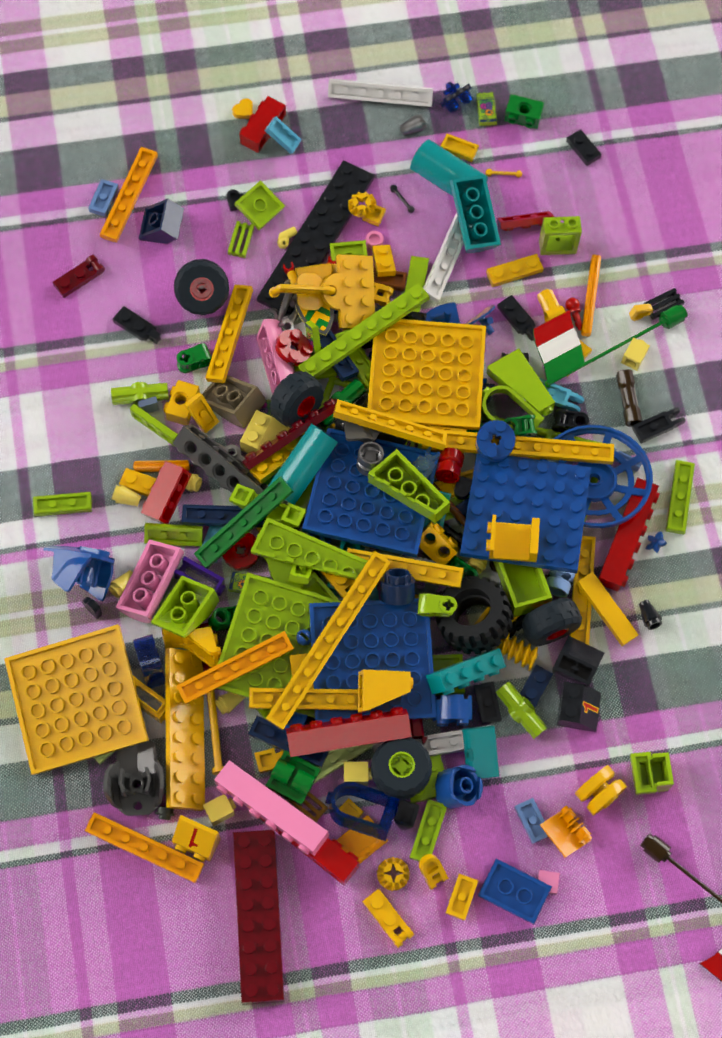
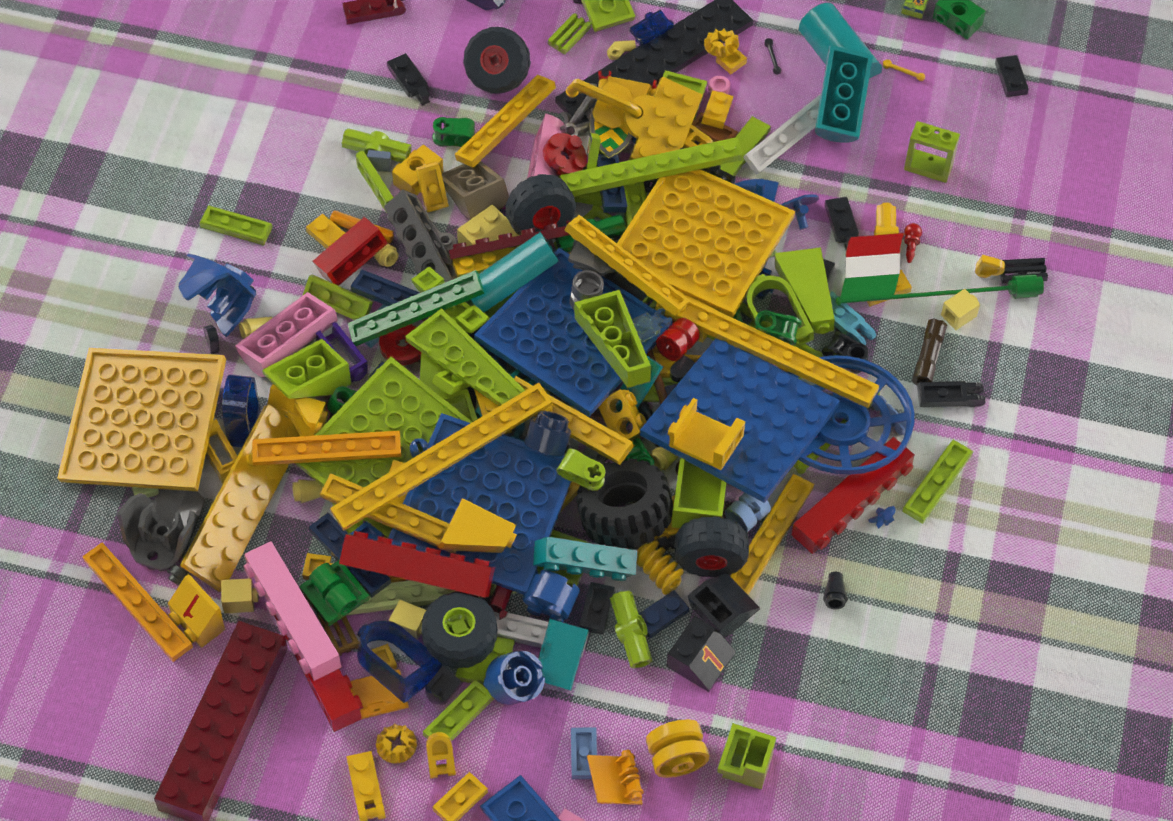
camera: 25 degrees right, 10 degrees down
(125, 496) = (306, 241): light yellow cone -> none
(214, 733) = (280, 507): yellow bar -> none
(302, 211) = (651, 27): none -> clear blue hips
(460, 147) = (866, 27): yellow tile -> none
(500, 431) = (736, 314): blue brick -> none
(514, 270) = (864, 173): yellow plate -> none
(523, 221) = (901, 126): red plate -> none
(591, 295) = (940, 231): light orange axle -> none
(607, 609) = (788, 564): yellow tile -> none

